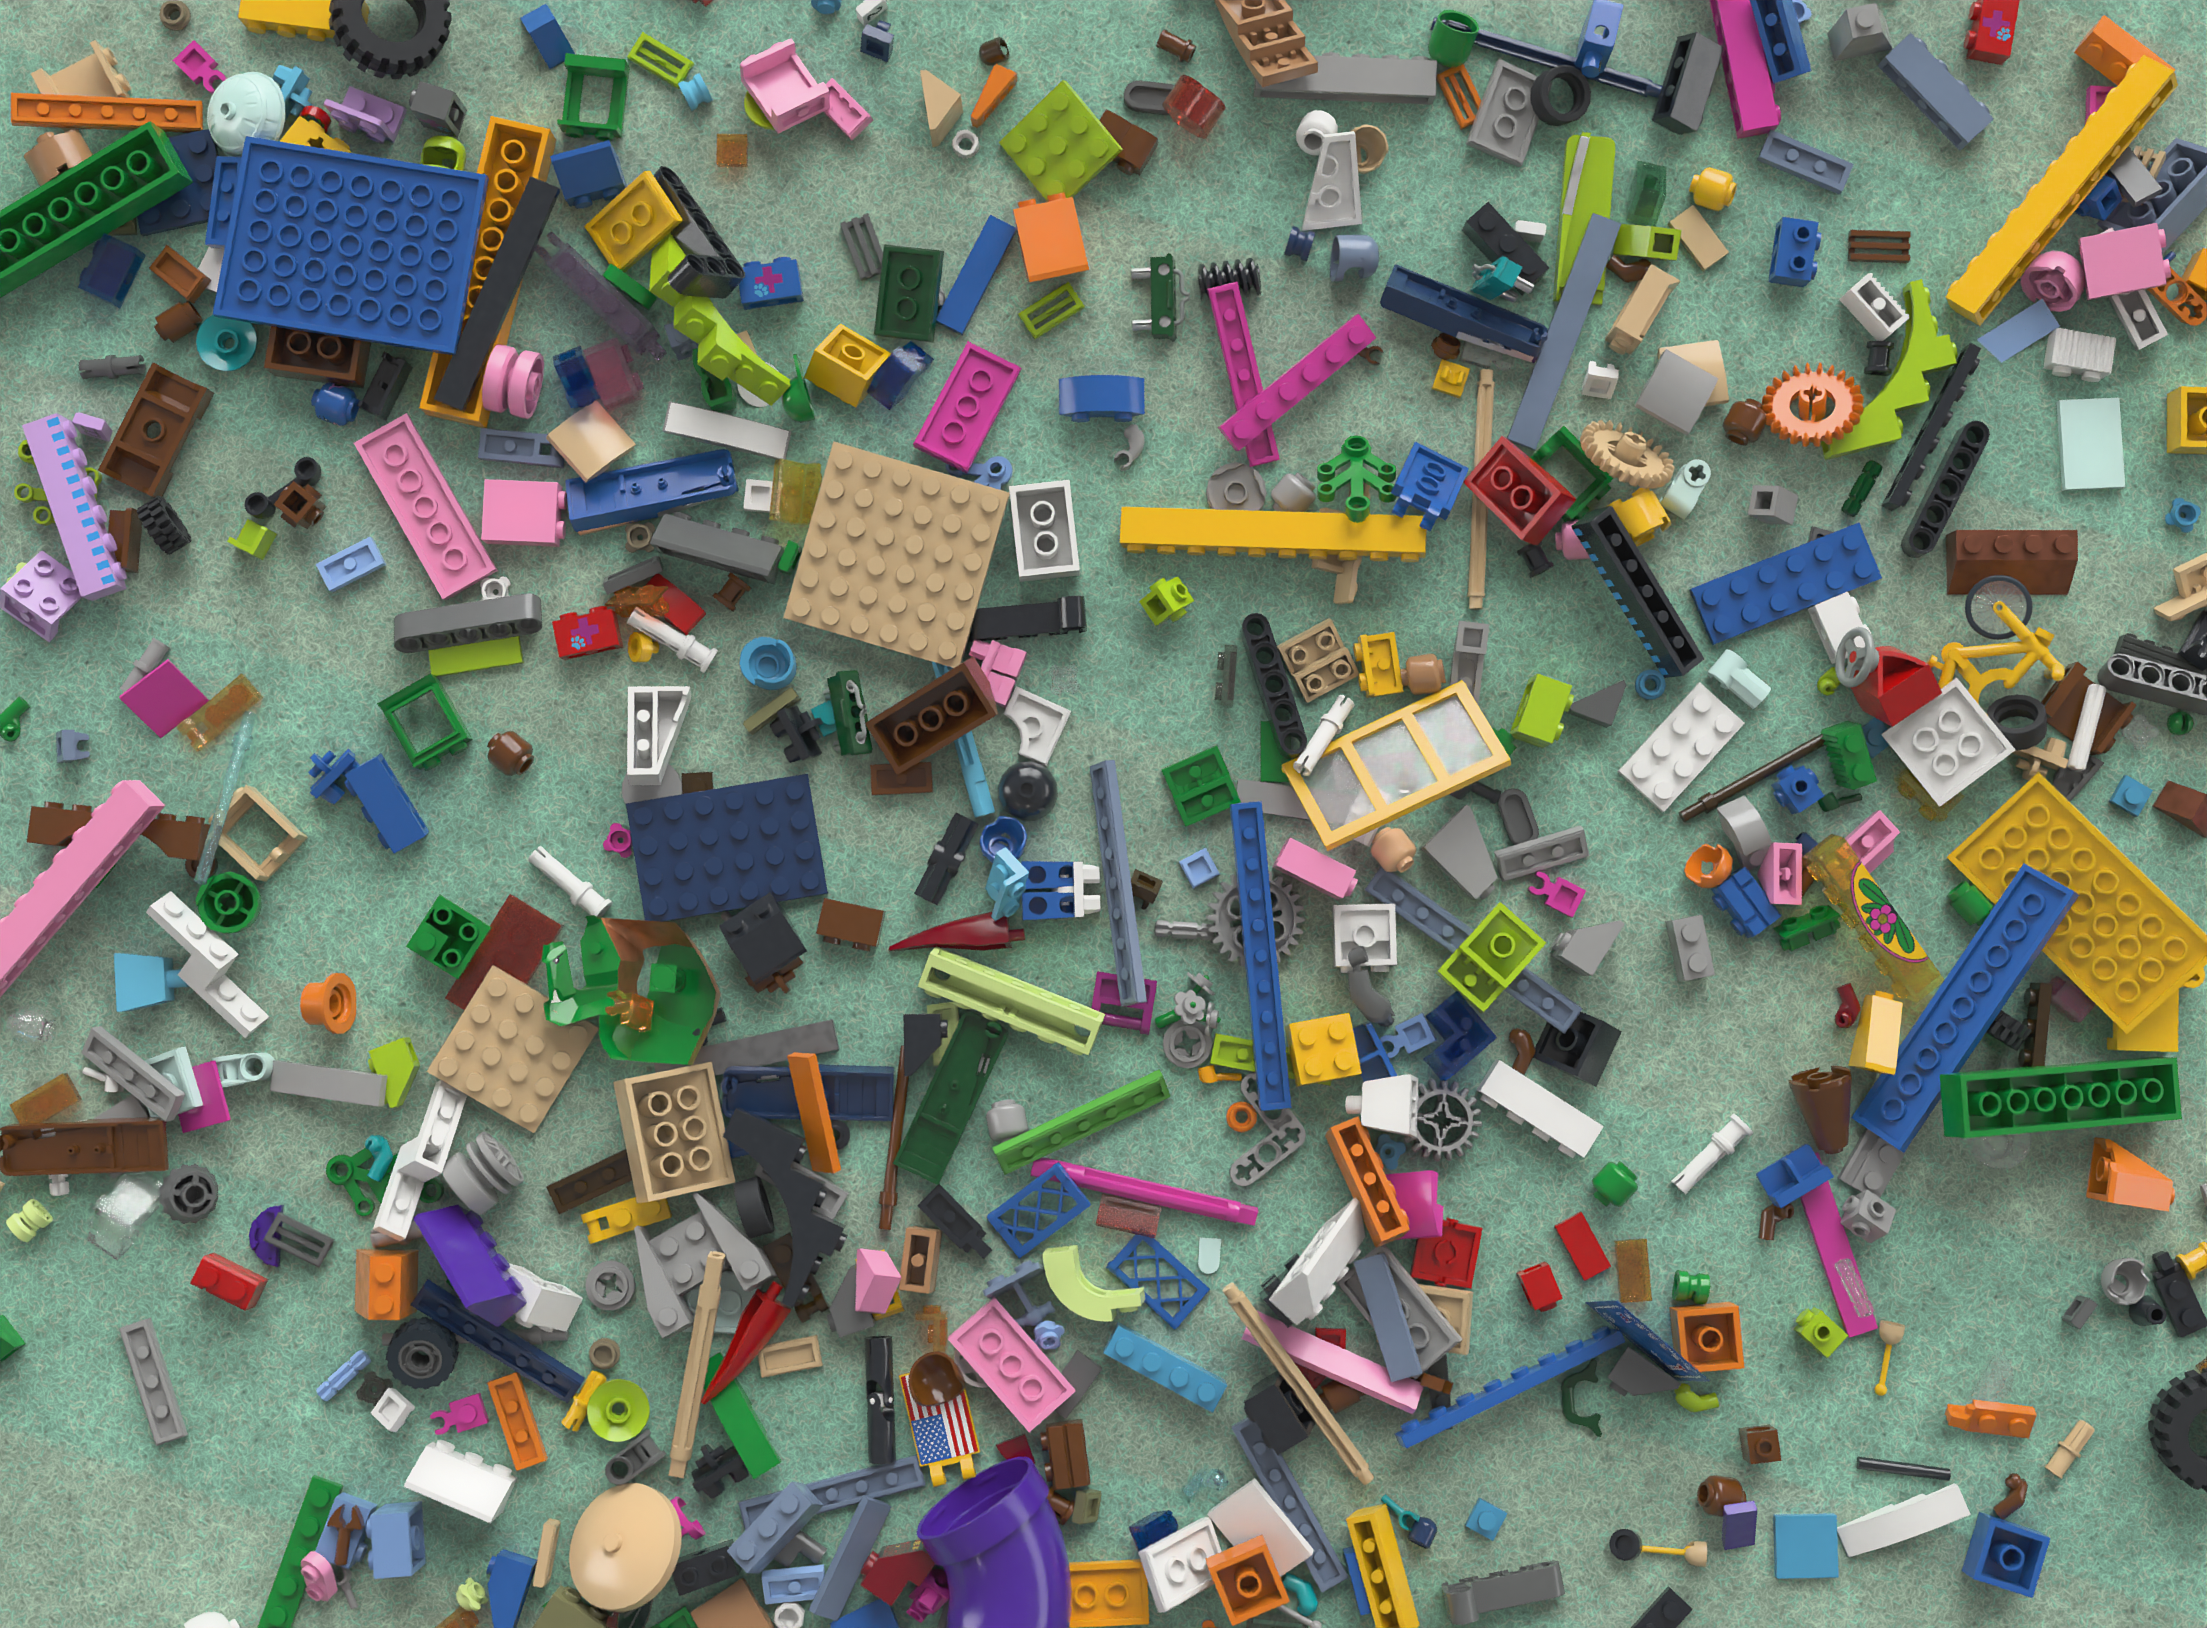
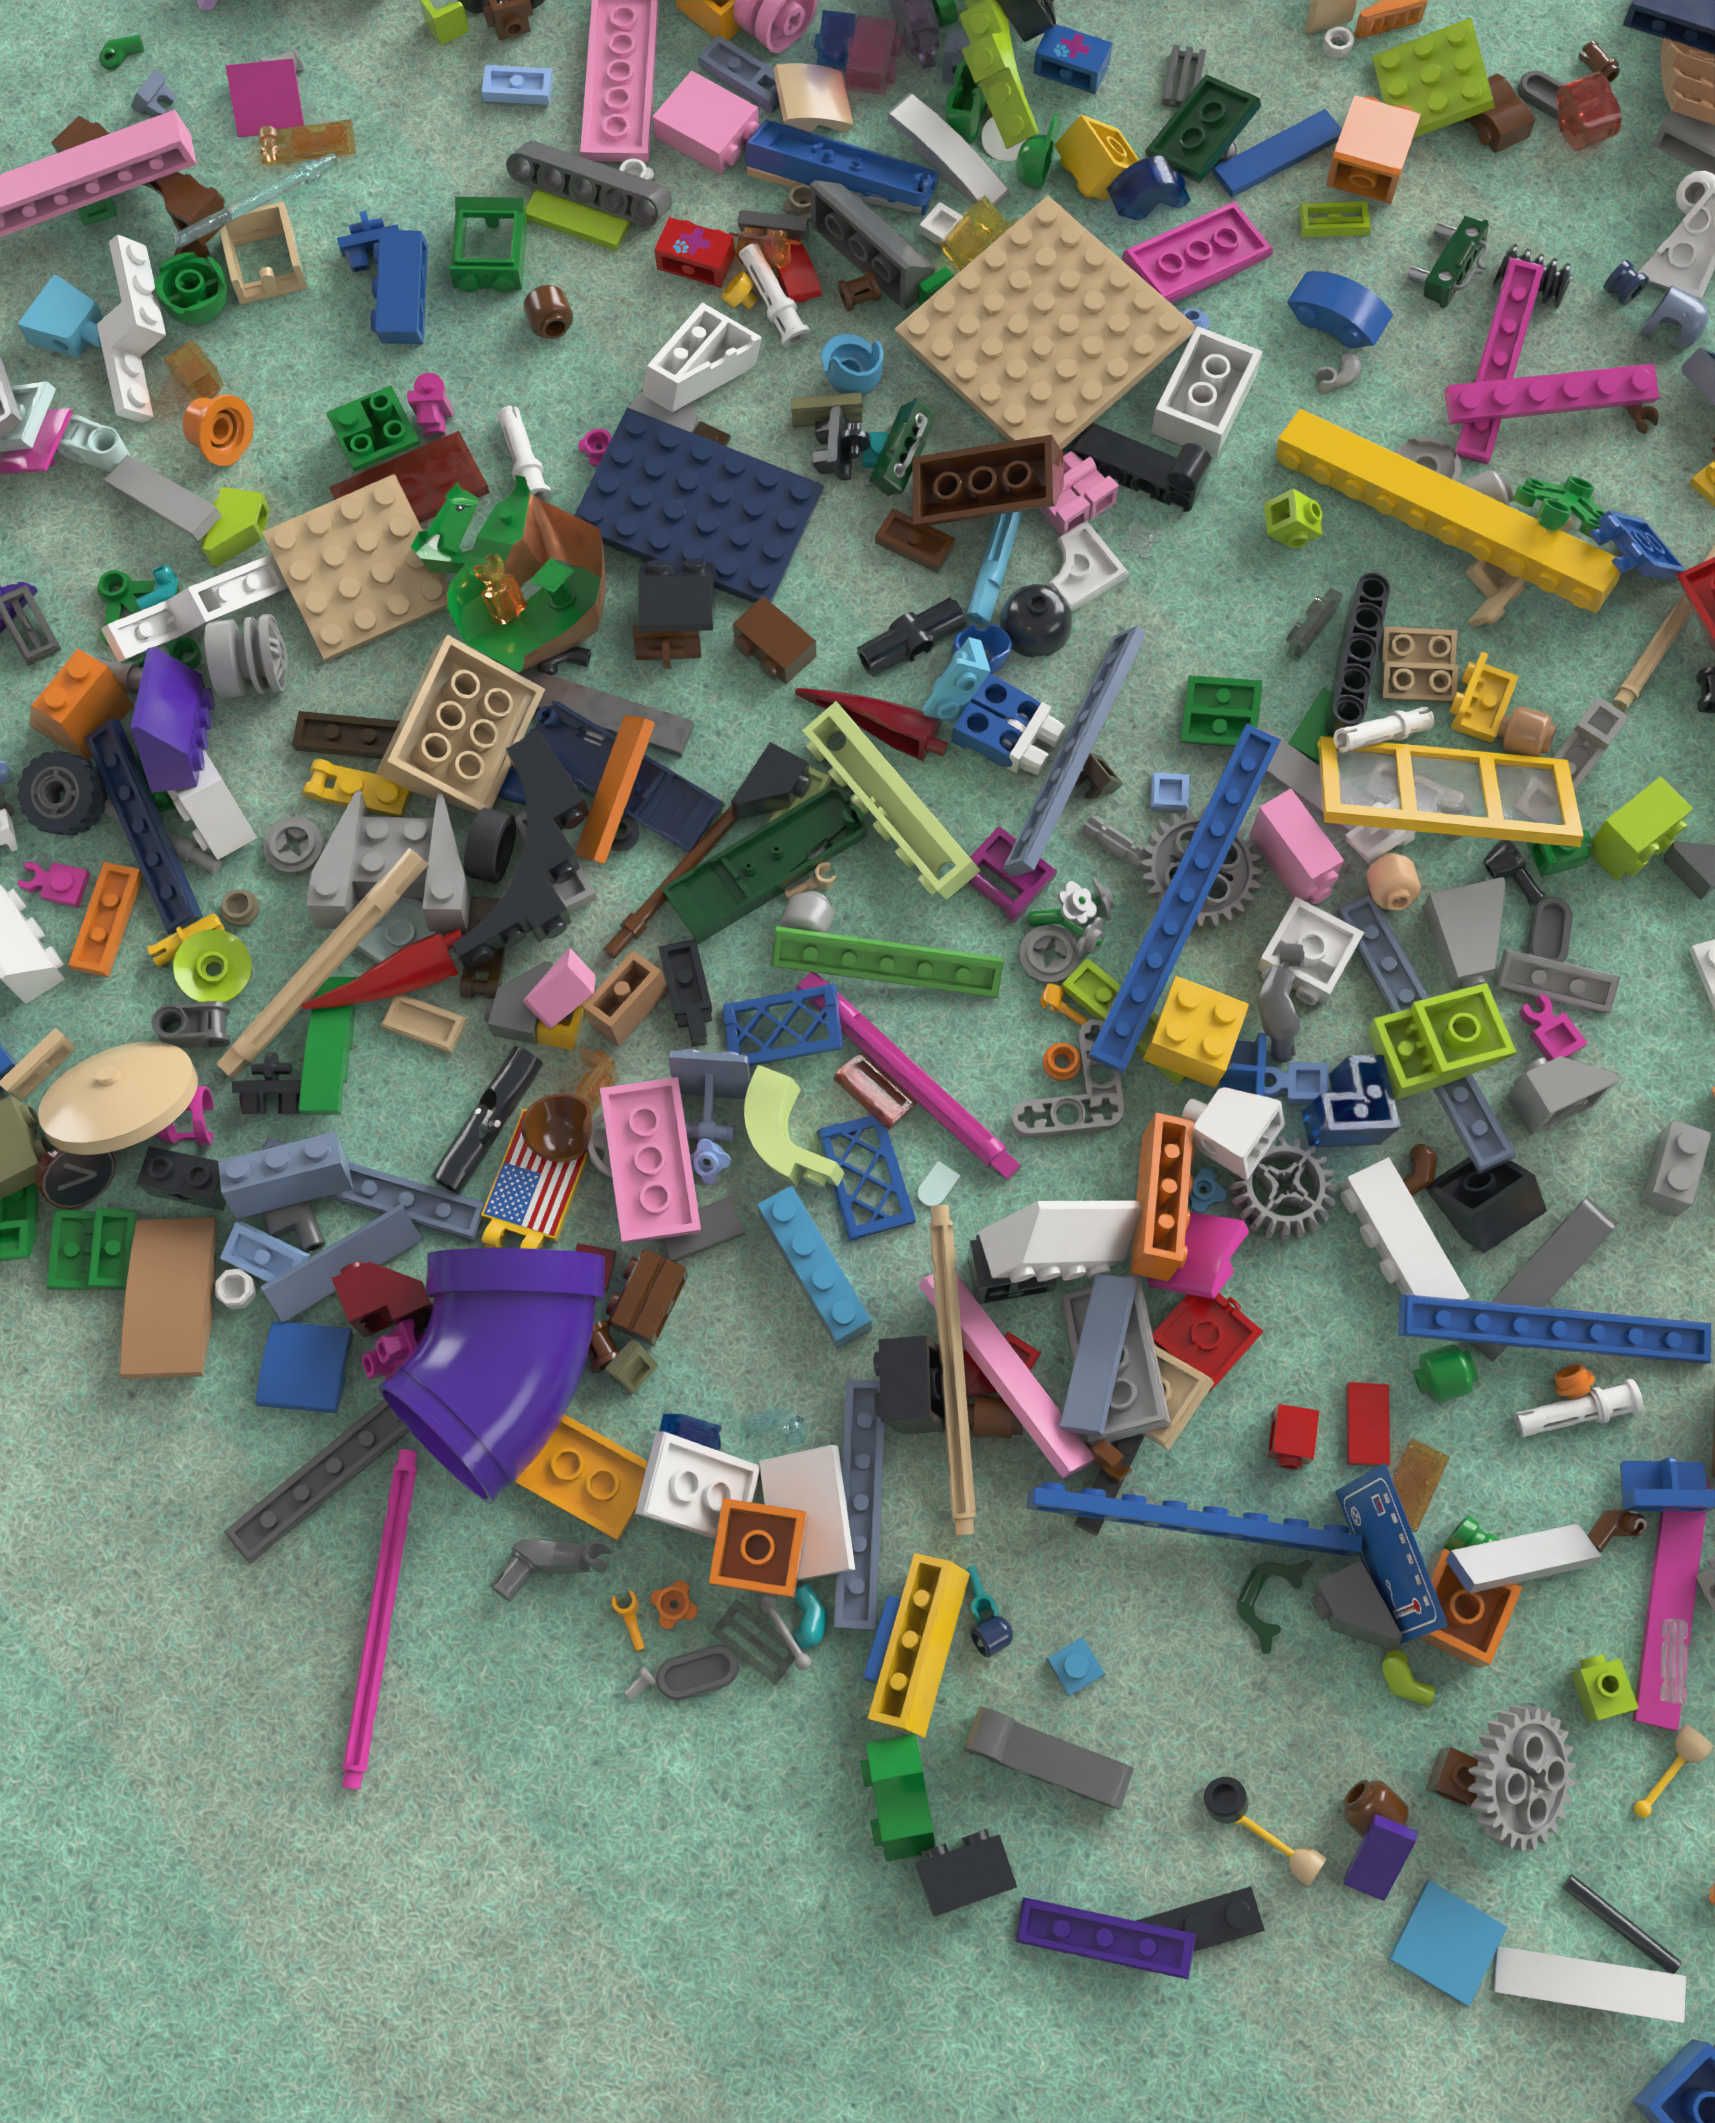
camera: 40 degrees right, 15 degrees down
(277, 965) = (194, 371): none -> clear orange brick
(476, 888) = (430, 403): none -> dark pink hips
(992, 1088) = (814, 882): none -> tan hand
(1642, 1079) = (1554, 1262): none -> dark grey beam
(1669, 1114) = (1554, 1329): none -> blue tile
(1698, 1138) = (1573, 1381): none -> orange plate
(1729, 1284) = (1523, 1558): none -> tile
(1798, 1448) = (1522, 1754): none -> light grey gear

